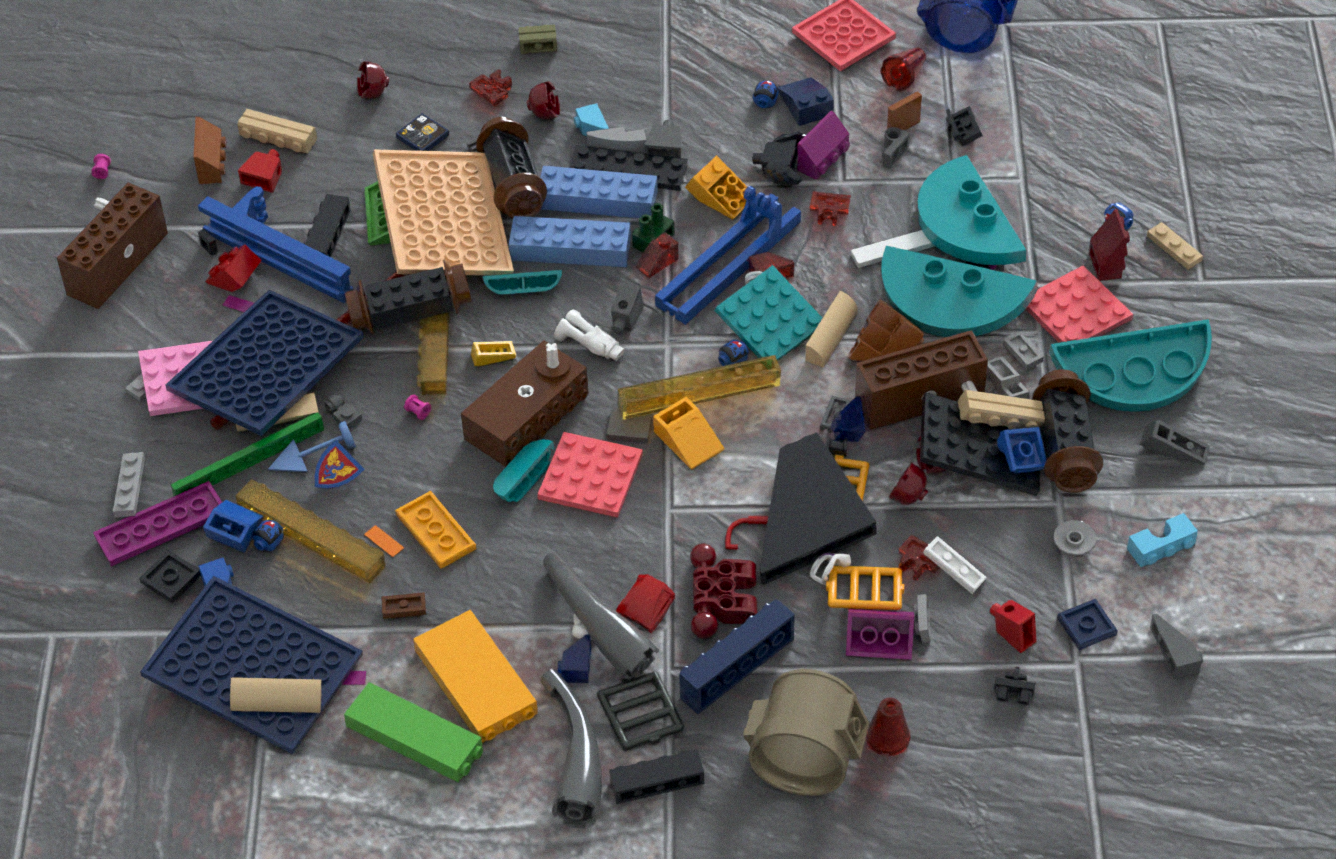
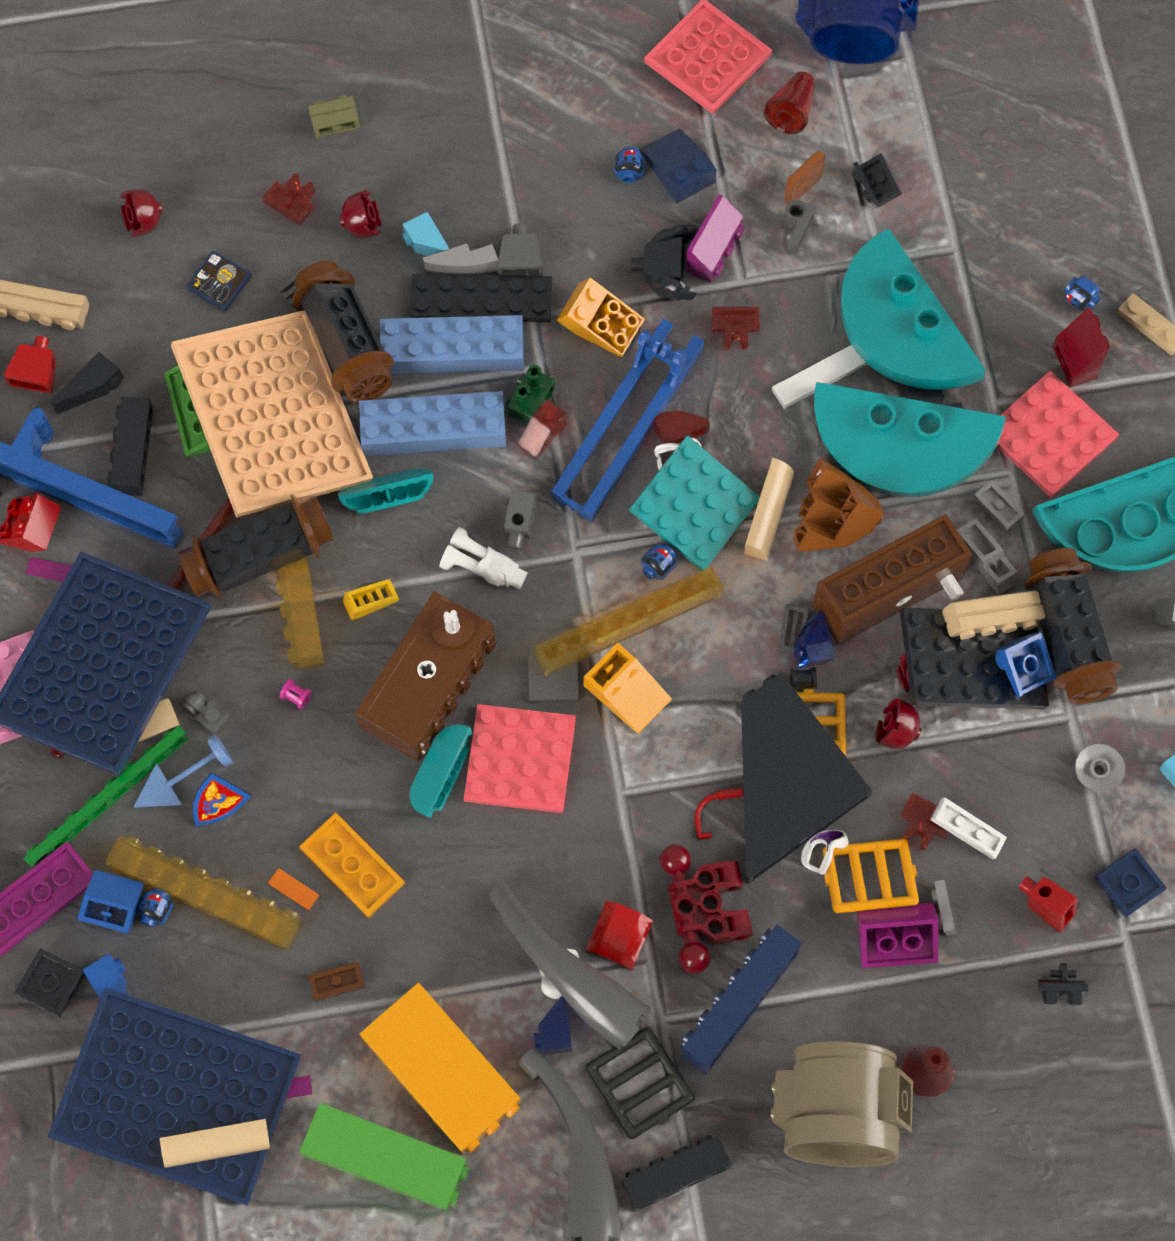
camera: 10 degrees left, 20 degrees up
(303, 186) = (91, 382): none -> black slope

